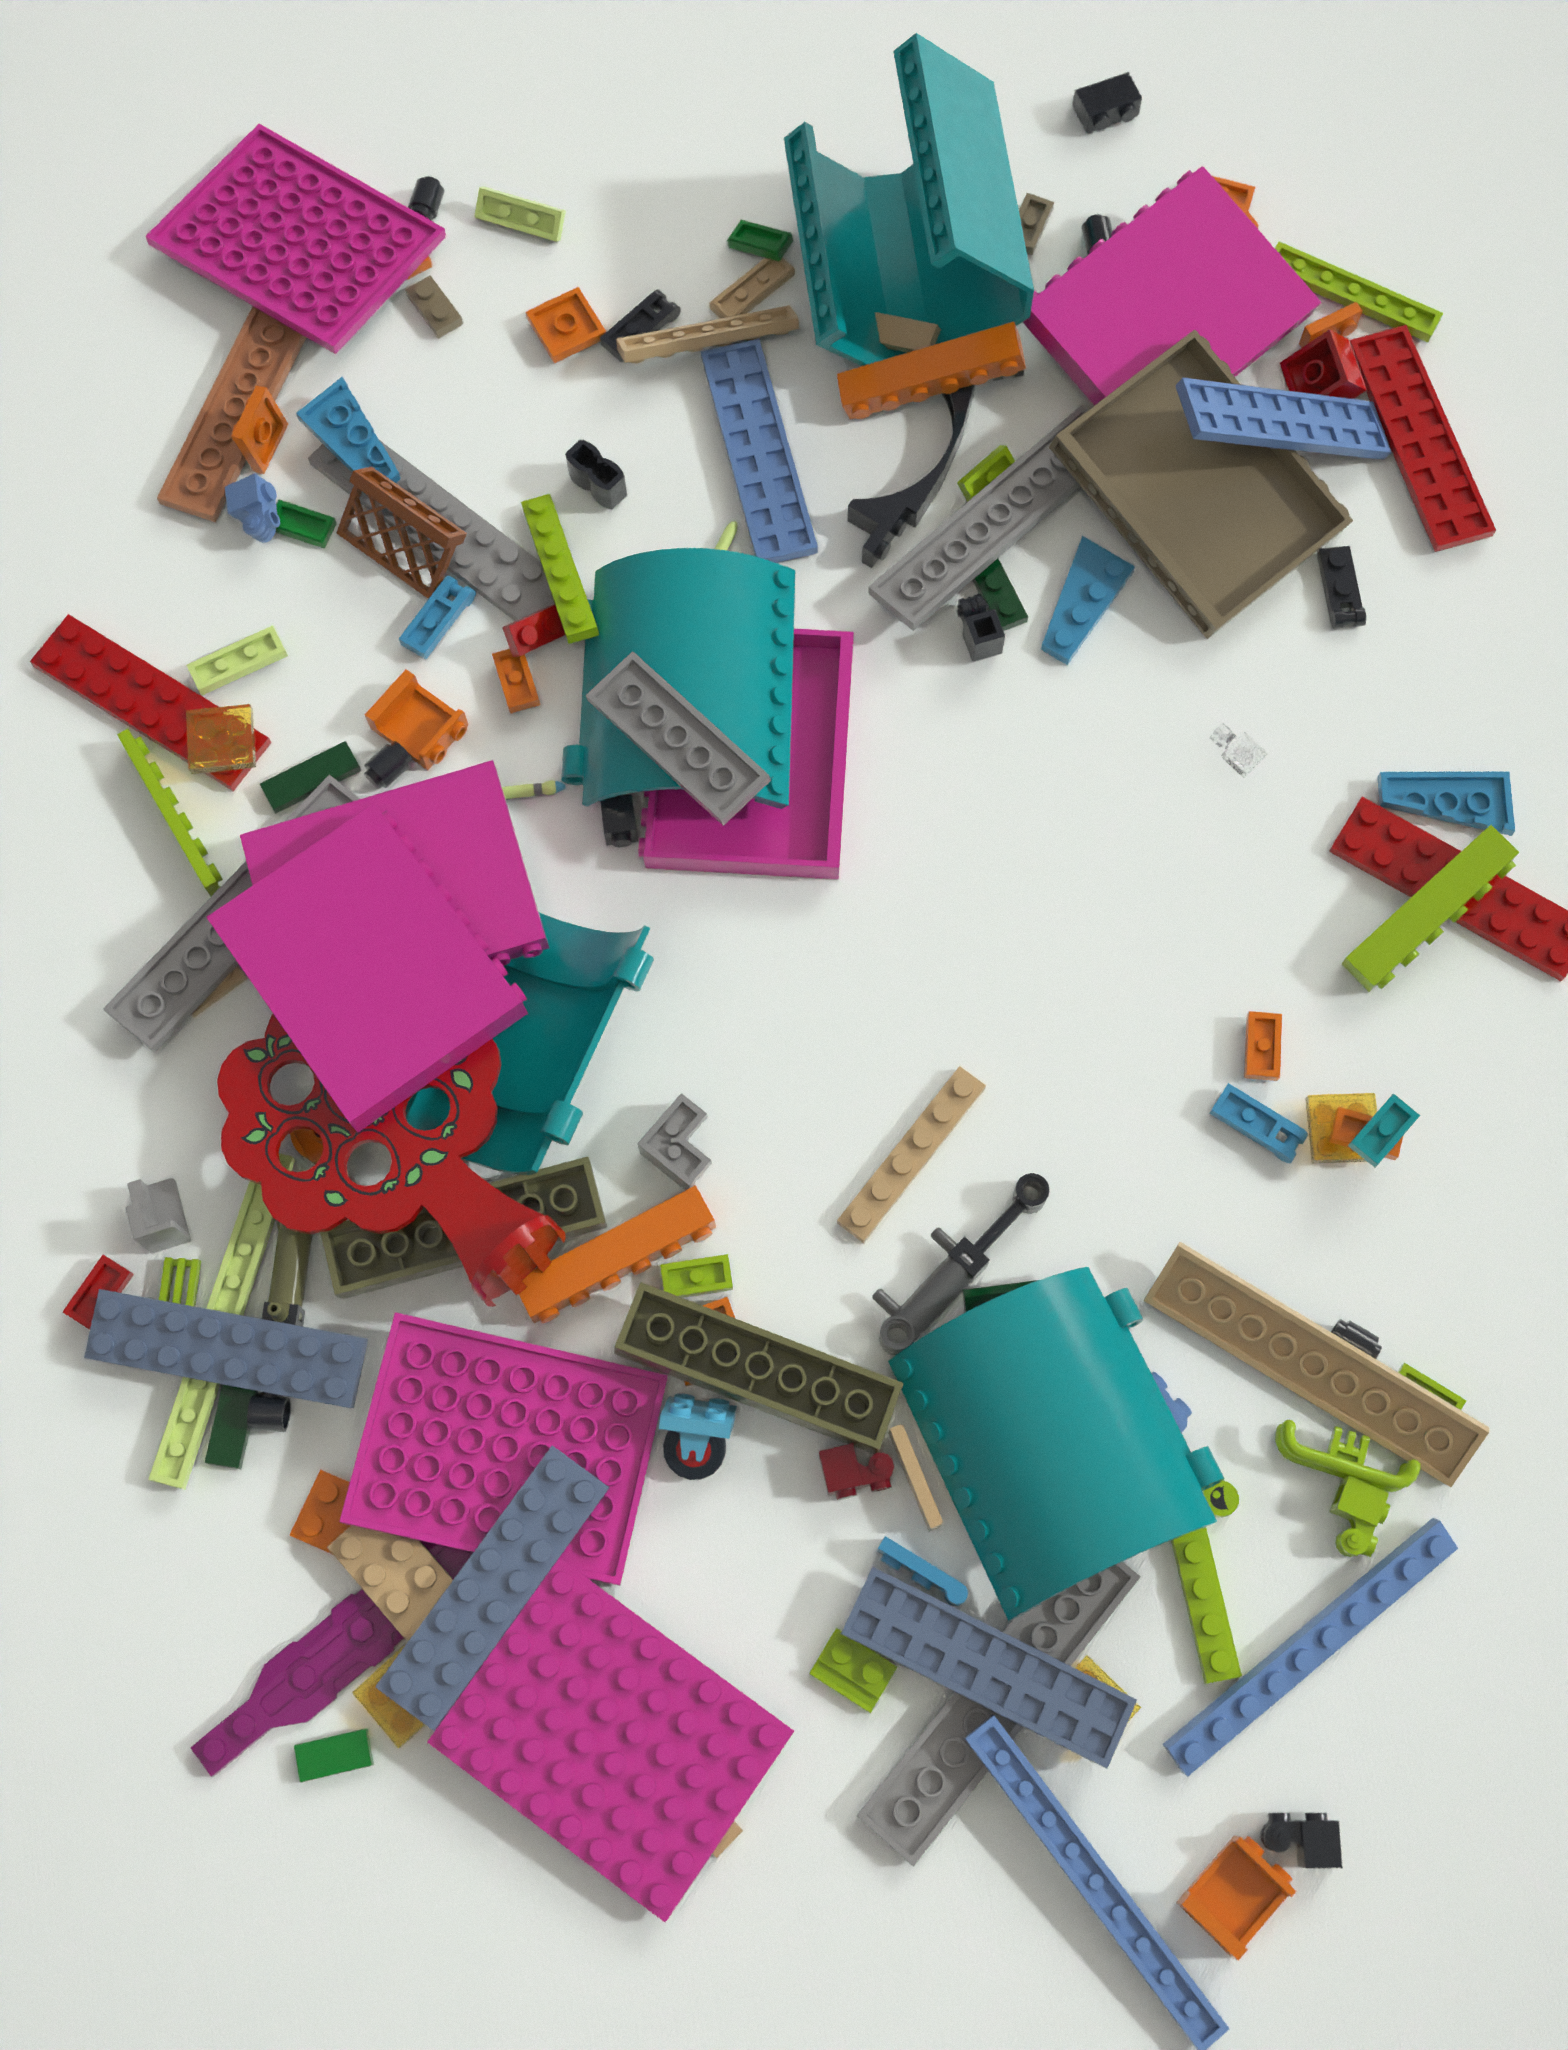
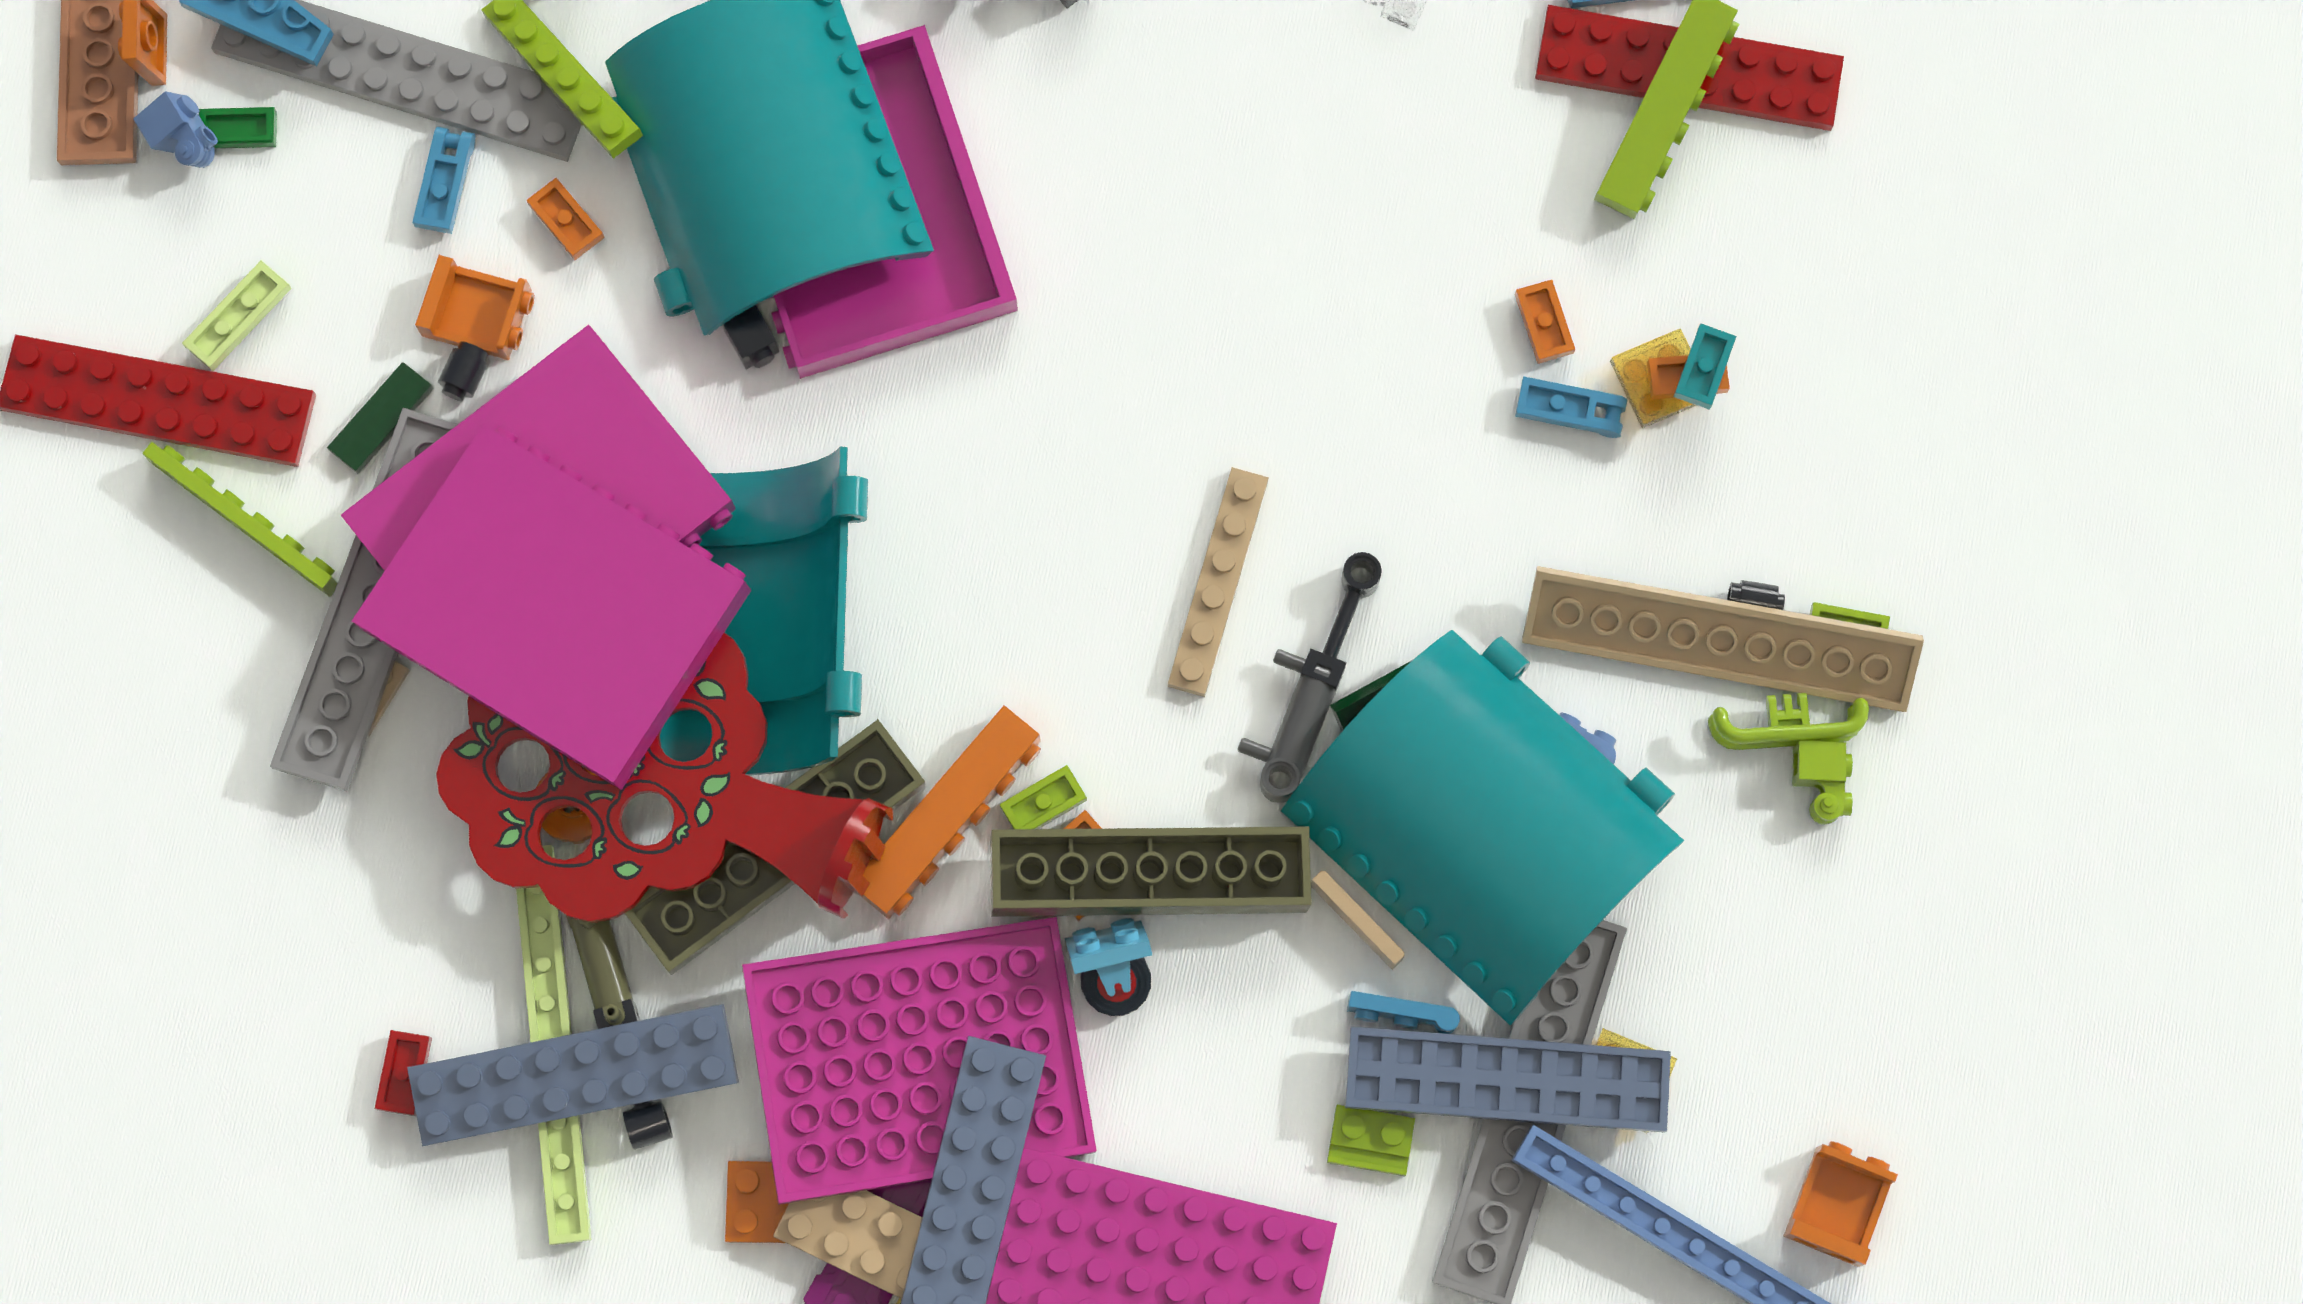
camera: 25 degrees left, 5 degrees up
(157, 1215) = (431, 963): light grey panel -> none
(167, 1275) = (480, 1007): lime tile -> none
(220, 739) = (263, 413): clear yellow plate -> none
(230, 1428) = (612, 1155): dark green tile -> none
(403, 507) = (360, 68): dark orange fence -> none
(528, 790) = (652, 330): yellowish green piece -> none
(533, 631) = (564, 156): red plate -> none
(668, 1144) = (957, 675): light grey panel -> none
(678, 738) = (788, 224): light grey plate -> none
(846, 1475) = (1284, 945): dark red brick -> none
(1206, 1607) = (1703, 931): lime plate -> none
(1222, 1499) = (1680, 815): lime tile -> none
(1310, 1647) = (1823, 929): medium blue plate -> none
(1315, 1838) = (1896, 1117): black brick -> none

